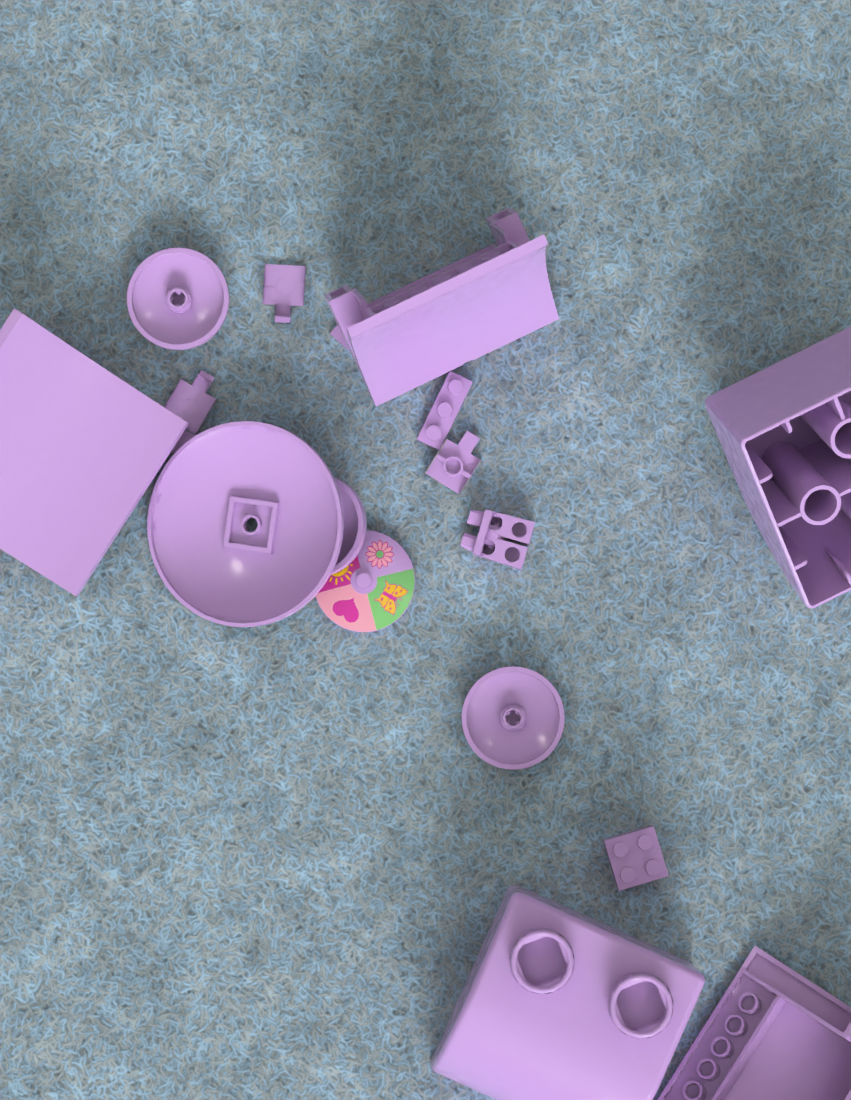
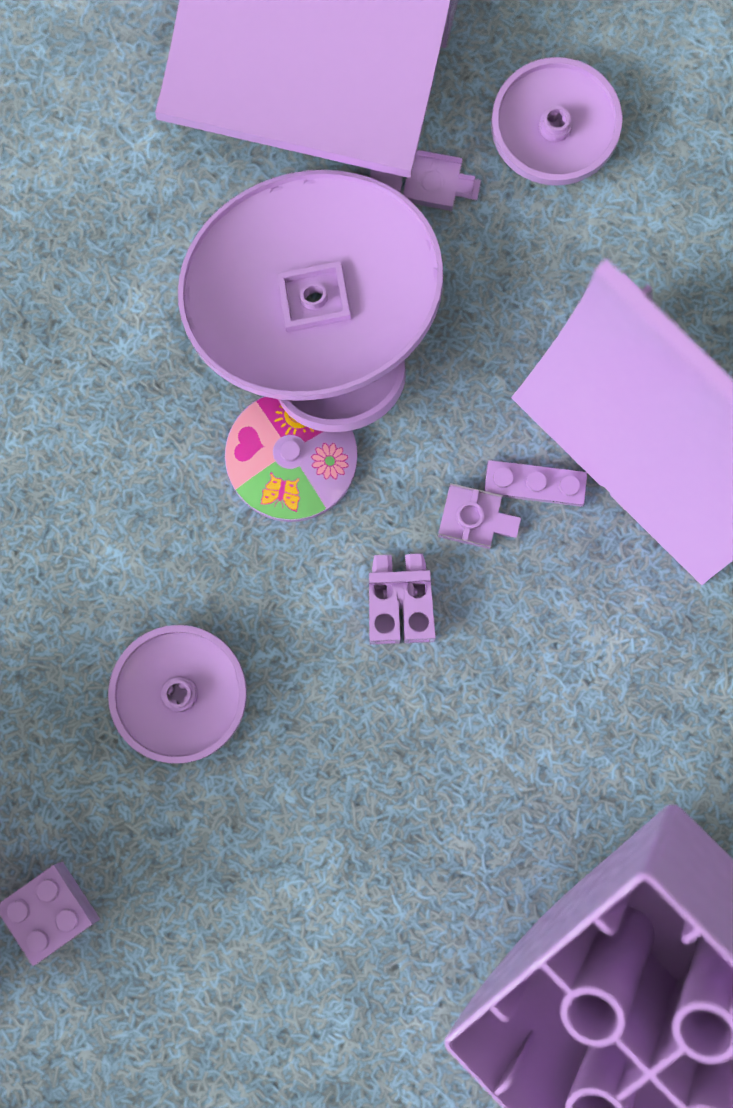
camera: 75 degrees right, 5 degrees down
(284, 288) = (614, 239): lavender piece -> none

